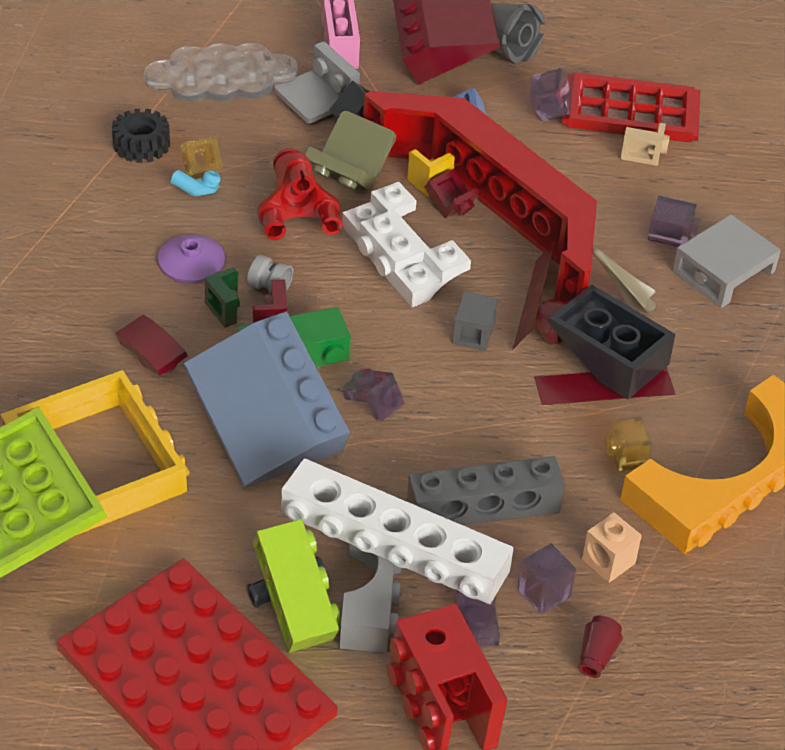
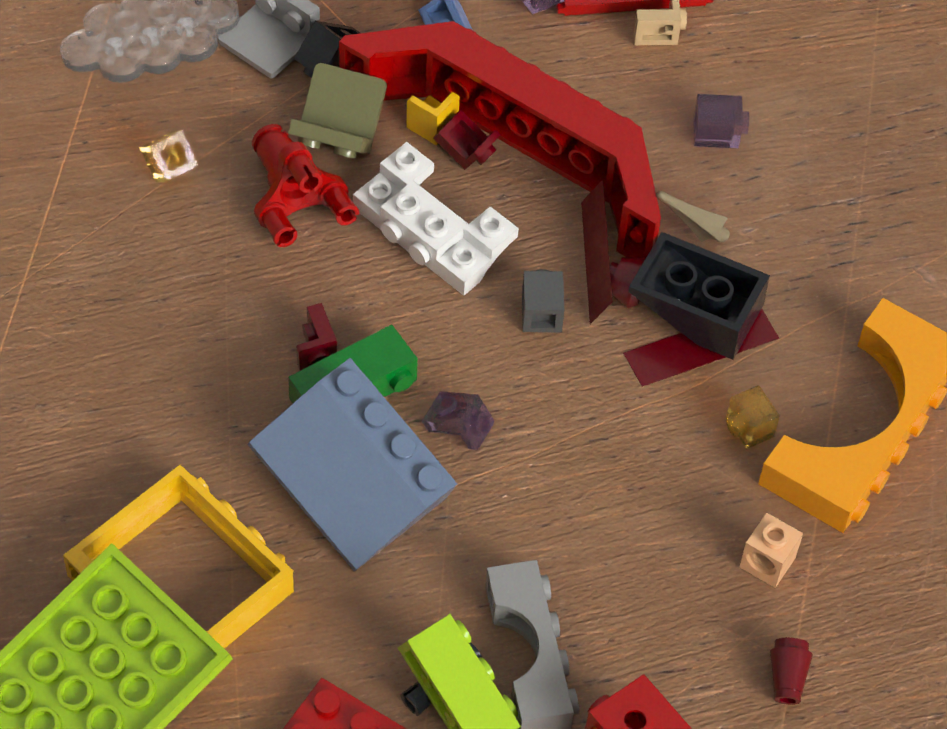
camera: 15 degrees left, 10 degrees up
(131, 144) = (86, 156): black tyre -> none
(152, 344) = (196, 418): dark red slope -> none
(191, 258) = (198, 302): medium lavender dish -> none
(198, 186) = (174, 194): medium azure arm -> none
(222, 296) = (252, 336): dark green bracket -> none
(265, 270) = (297, 295): light grey wheel -> none
(397, 531) = (568, 586): white brick -> none
(480, 619) = (651, 656): clear purple bracket -> none
(490, 491) = (619, 518): dark grey brick -> none
(546, 578) = (714, 605): brick -> none
(724, 259) = (788, 157): light grey panel -> none

